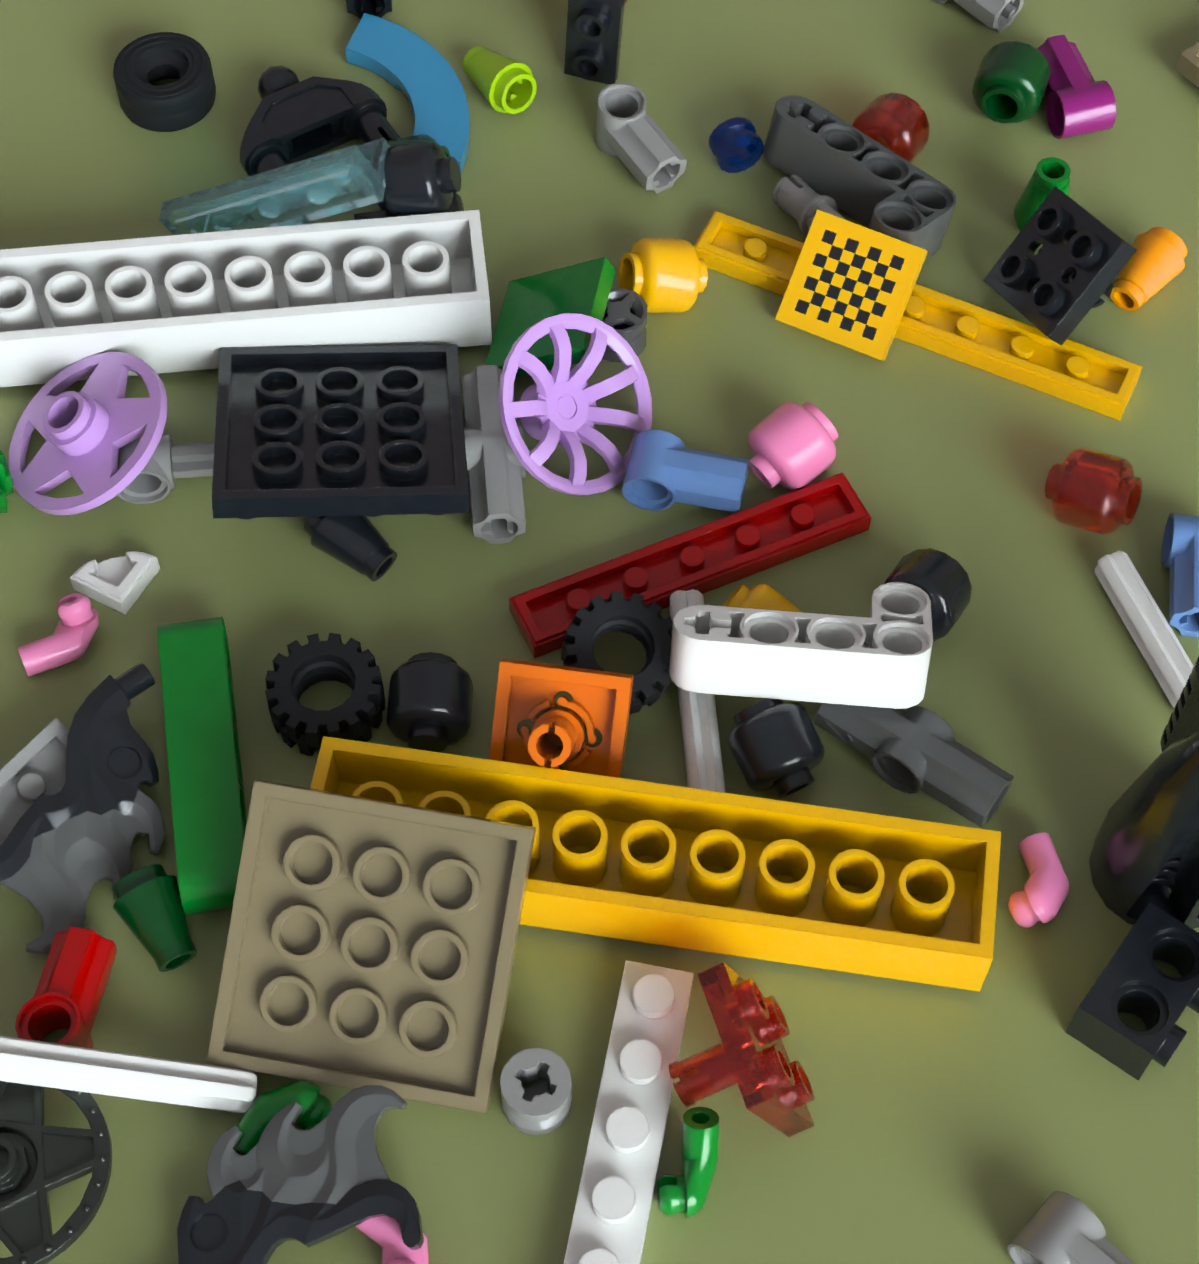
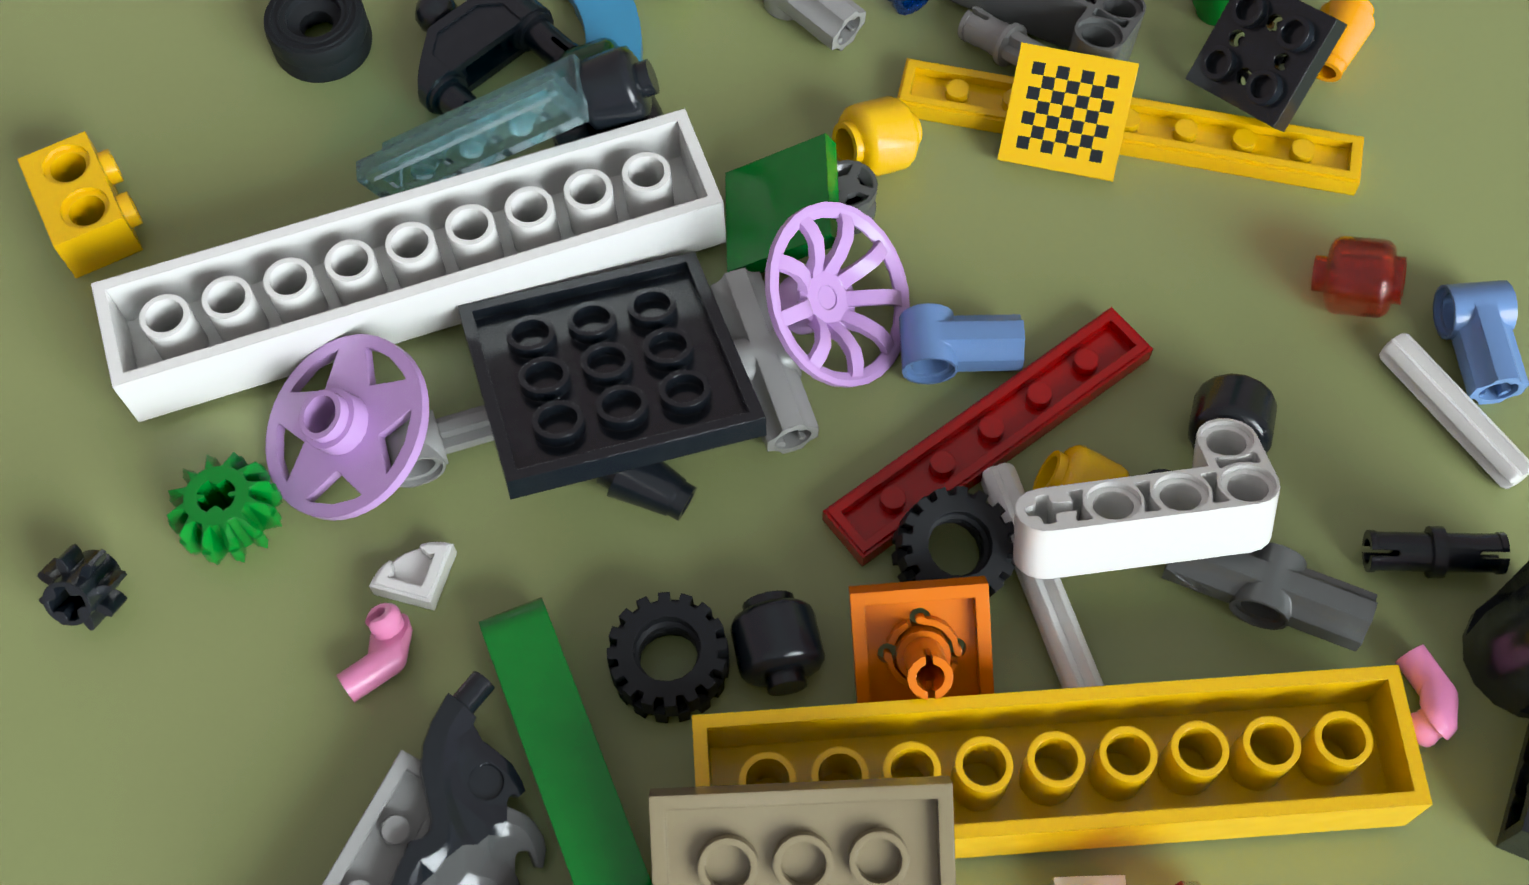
camera: 10 degrees left, 5 degrees up
(776, 746) = (1136, 614): black head -> none
(792, 446) = (1057, 290): bright pink head -> none
(1085, 753) = (1436, 552): none -> black pin

